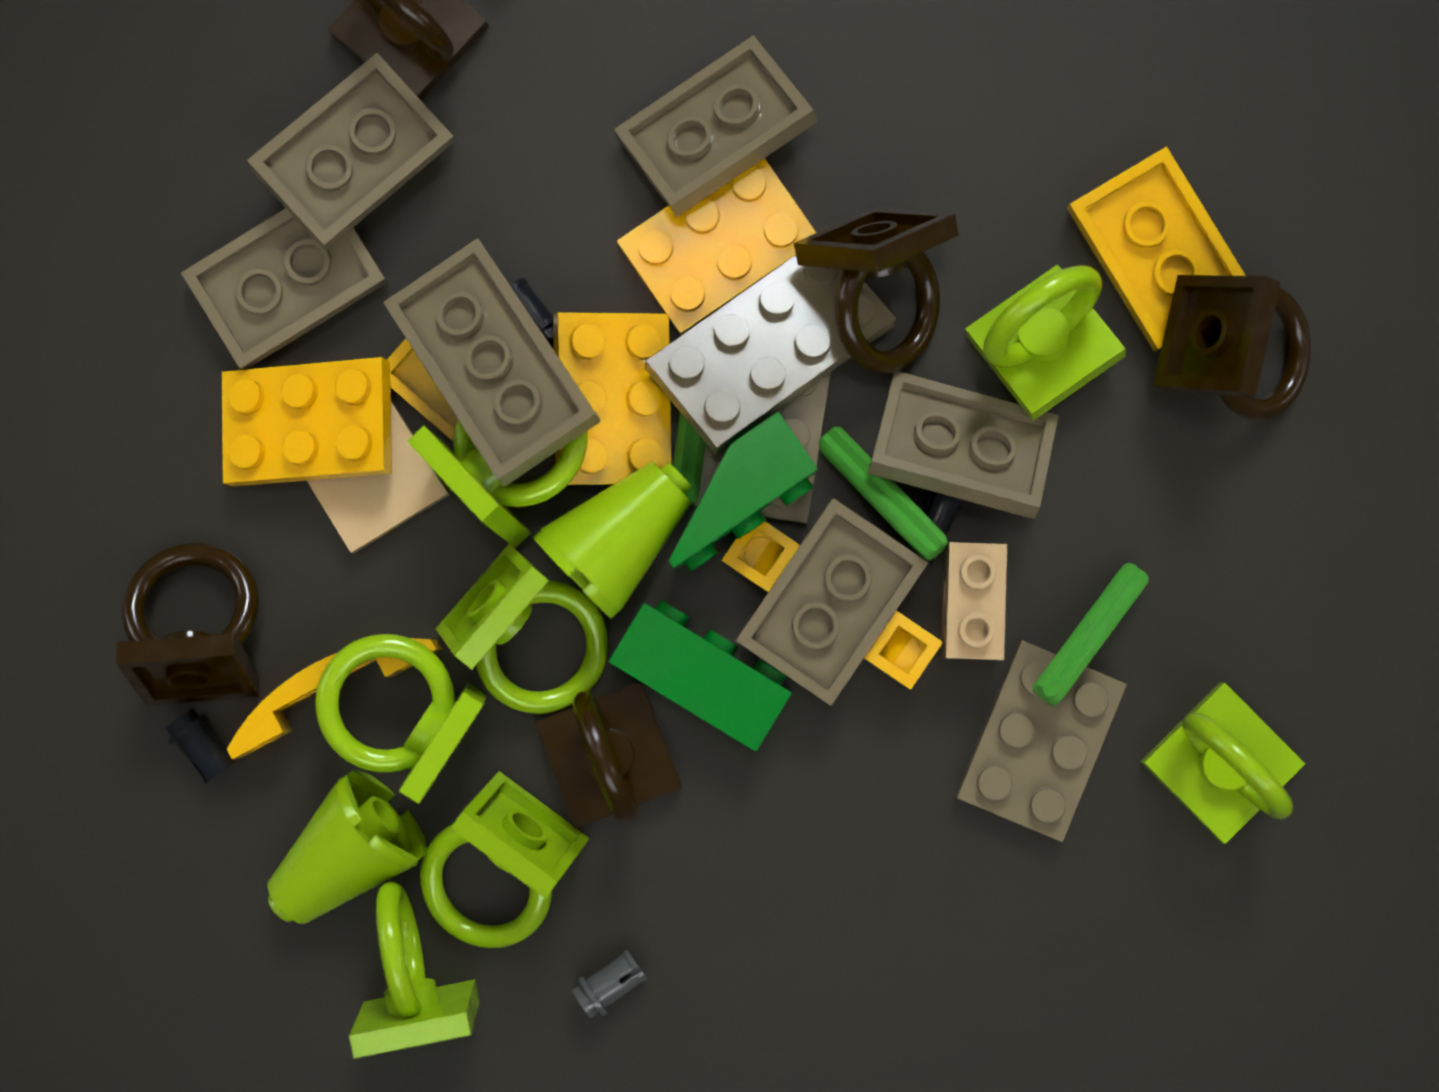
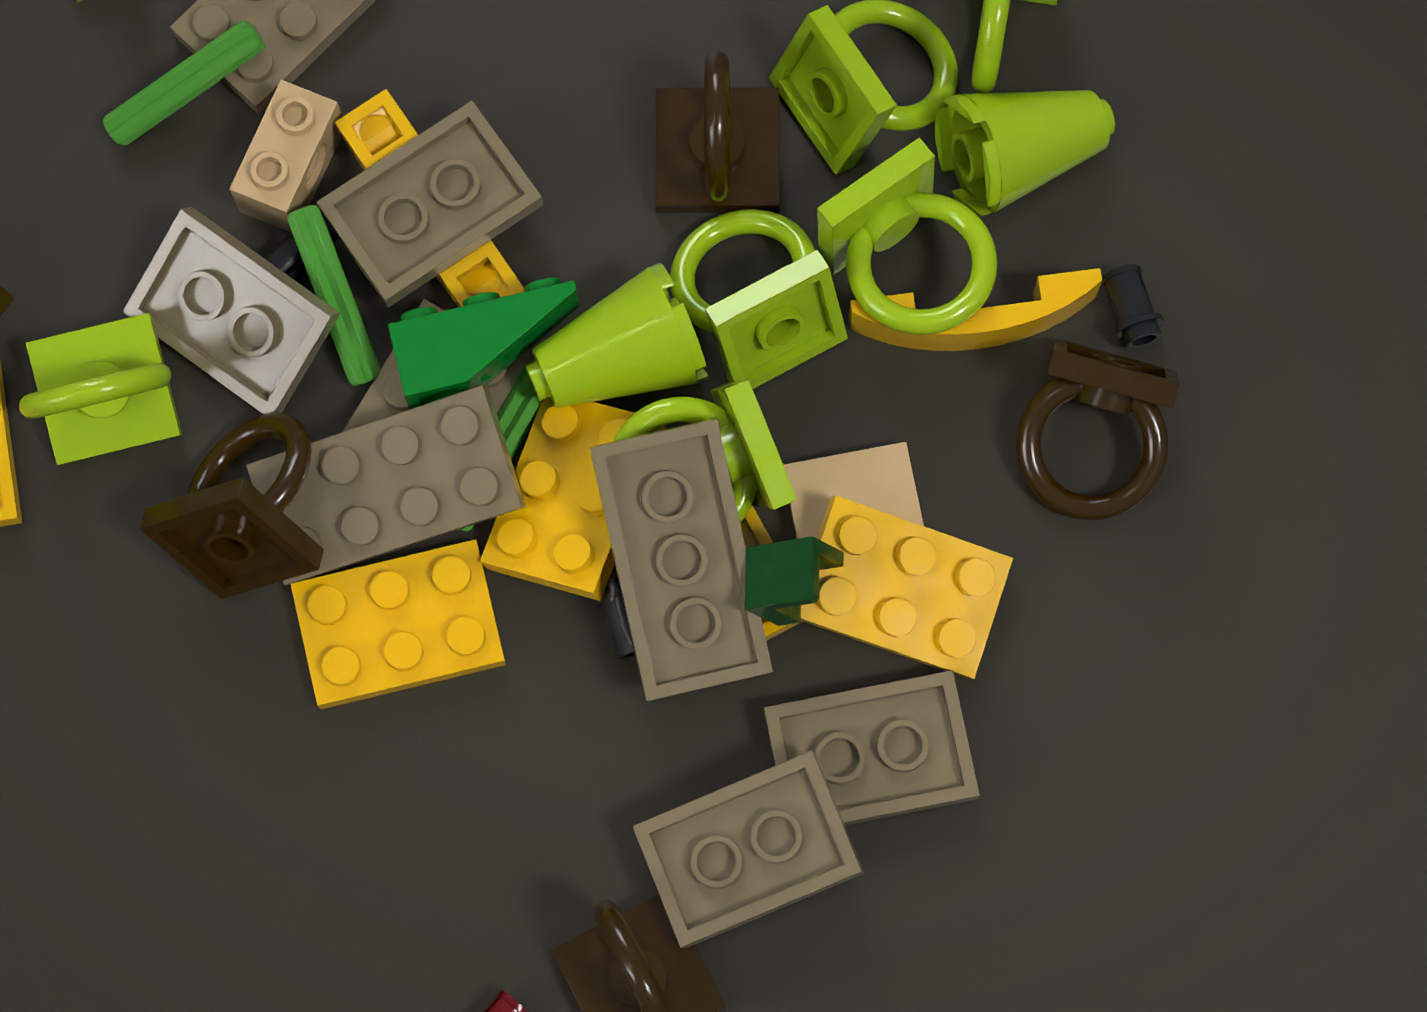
camera: 160 degrees left, 10 degrees down
(394, 375) = (786, 576): none -> dark green panel
(702, 674) = (592, 187): green brick -> none
(715, 125) = (350, 736): dark tan plate -> none

